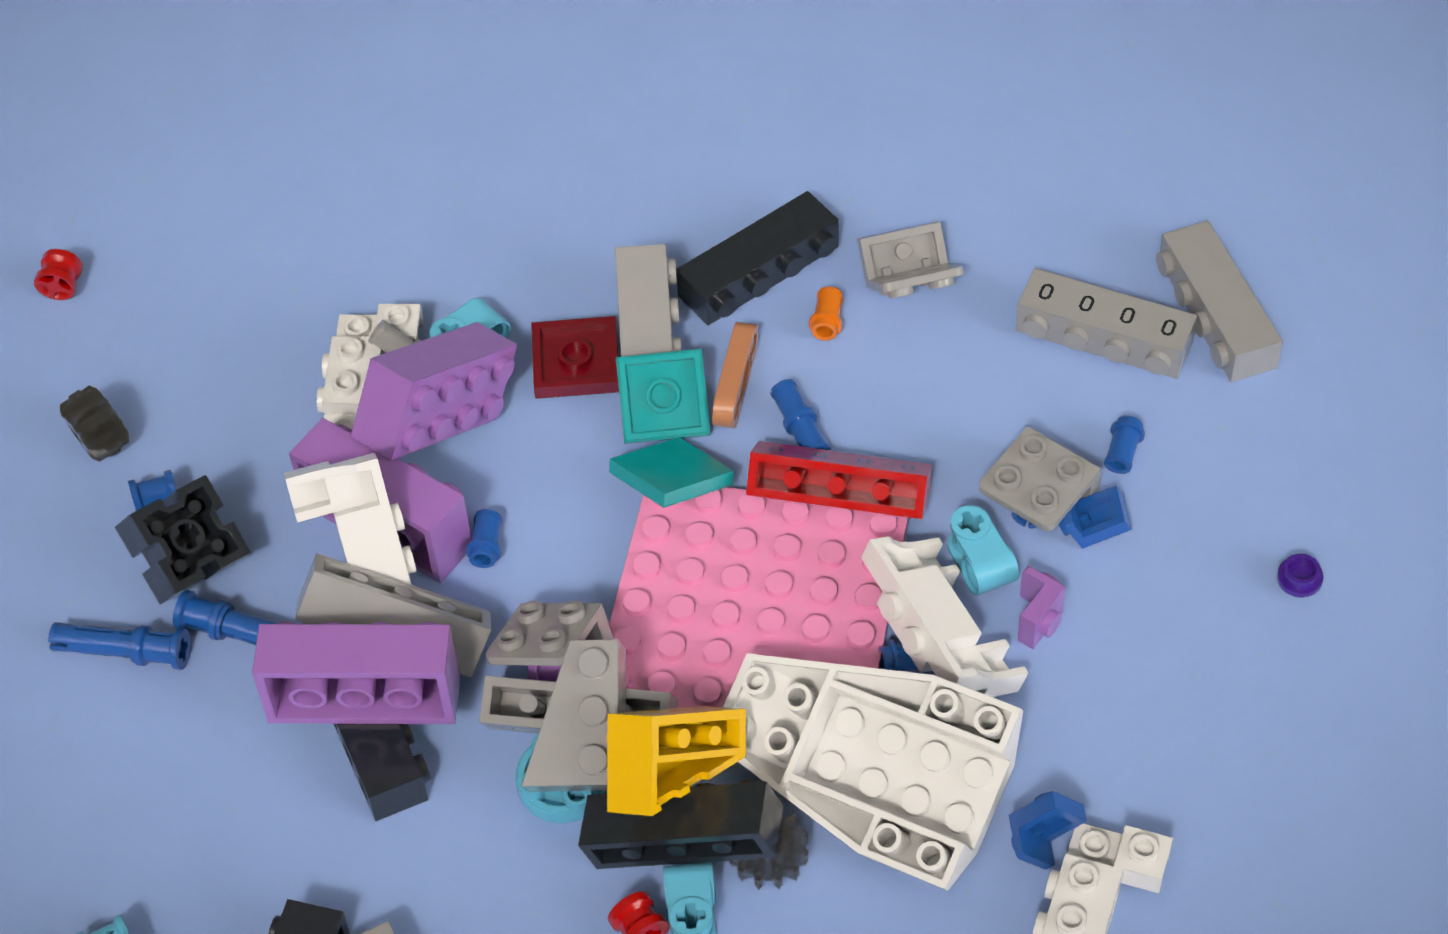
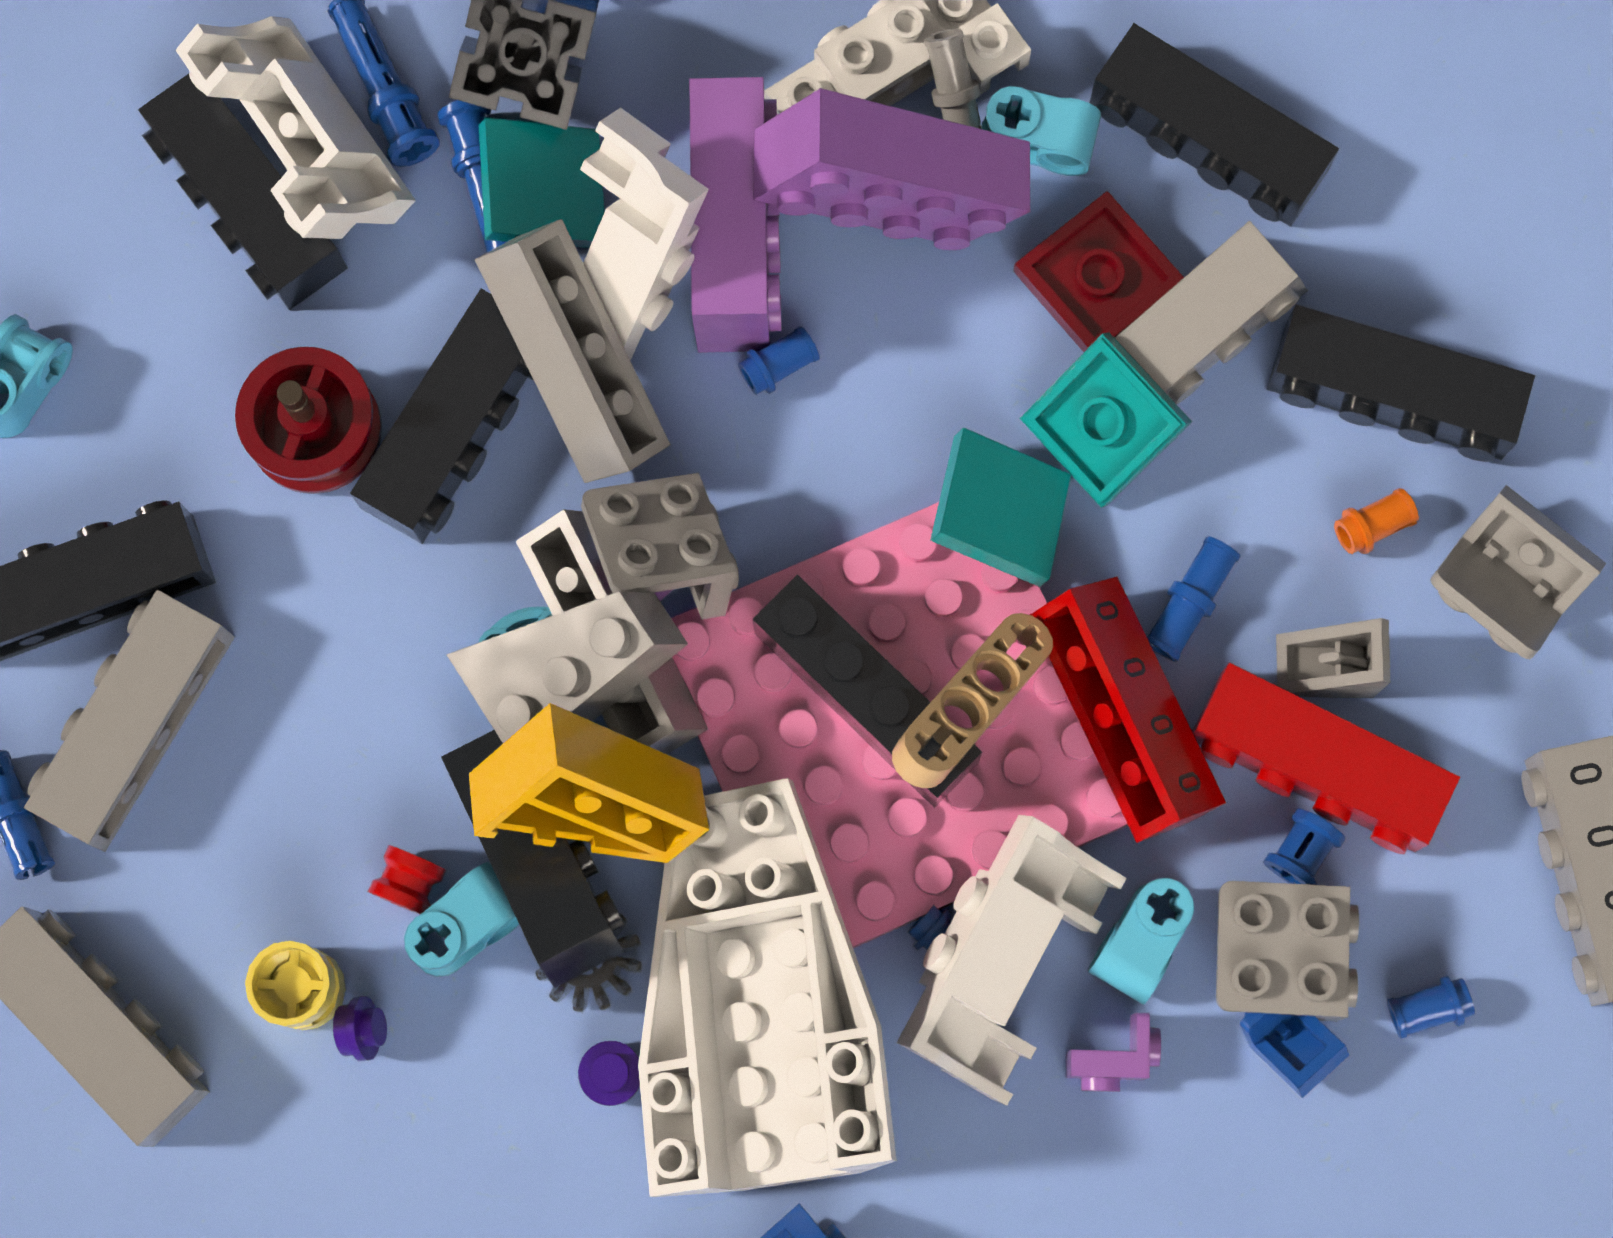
camera: 55 degrees right, 25 degrees up
(112, 689) = (330, 157): none -> white bracket
(116, 757) = (236, 181): none -> black brick
(259, 589) = (536, 179): none -> teal tile
(299, 801) = (308, 420): none -> dark red wheel
(357, 673) = (452, 370): medium lavender brick -> none
(538, 255) = (1211, 126): none -> black brick
(726, 590) = (850, 676): none -> black brick
(735, 375) = (1204, 477): nougat beam -> none
(778, 527) = (973, 698): none -> tan beam
(849, 882) = (609, 1073): none -> dark purple plate
(893, 370) = (1335, 660): none -> light grey slope
(943, 408) = (1324, 760): none -> red brick
(984, 450) = (1307, 829): none -> blue bush

